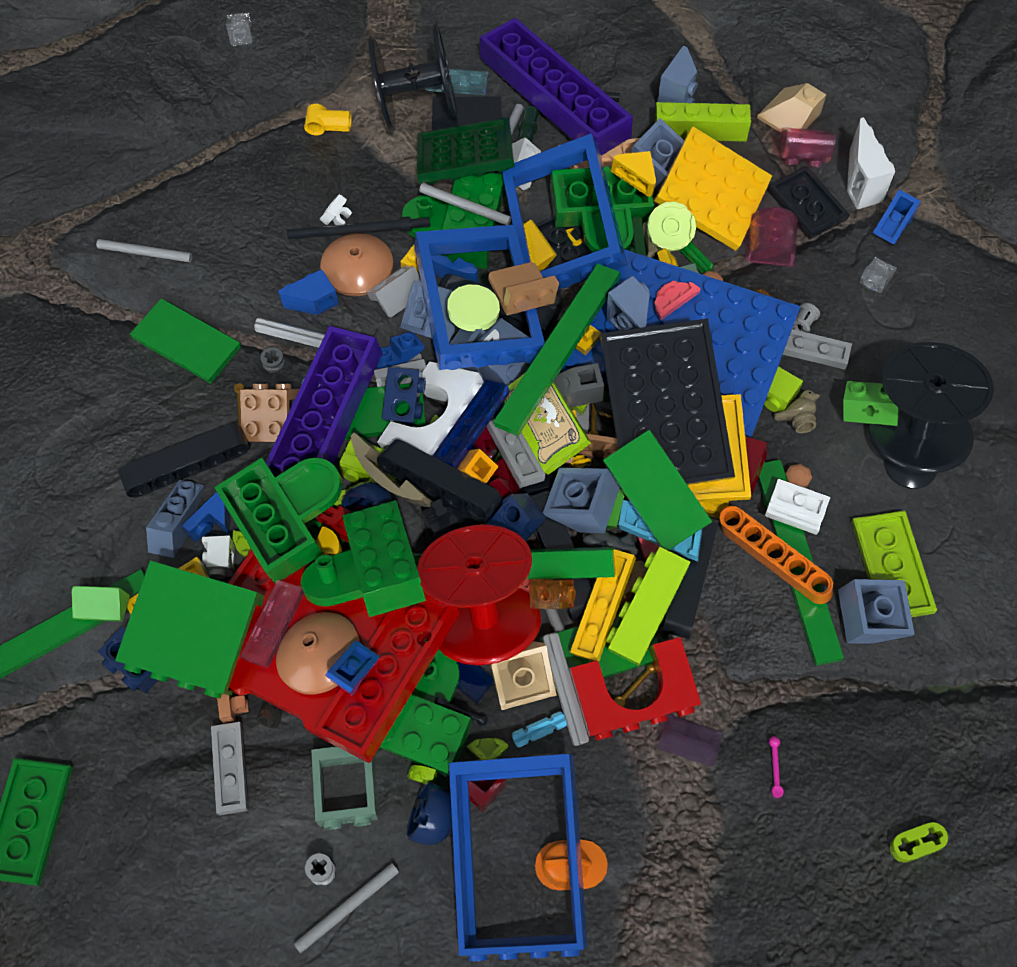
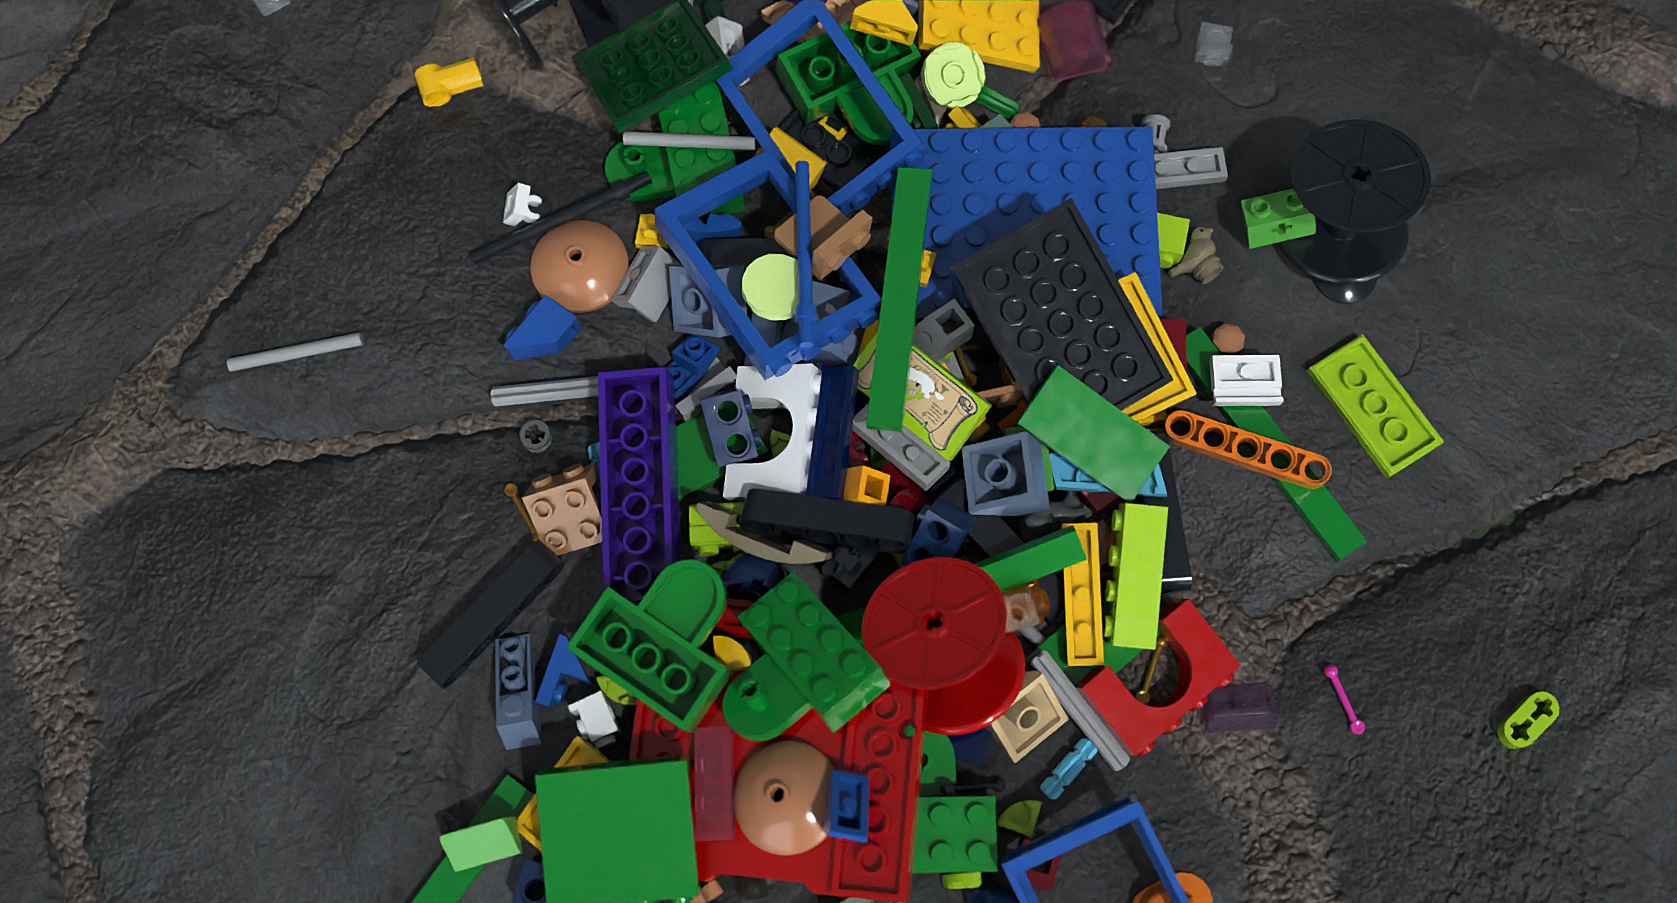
camera: 25 degrees left, 10 degrees up
(185, 340) = (411, 454): green tile -> none
(484, 325) = (804, 311): none -> blue bar
(628, 305) = (966, 215): sand blue slope -> none
(673, 296) = (1000, 173): coral tile -> none
(875, 611) = (1382, 473): sand blue slope -> none

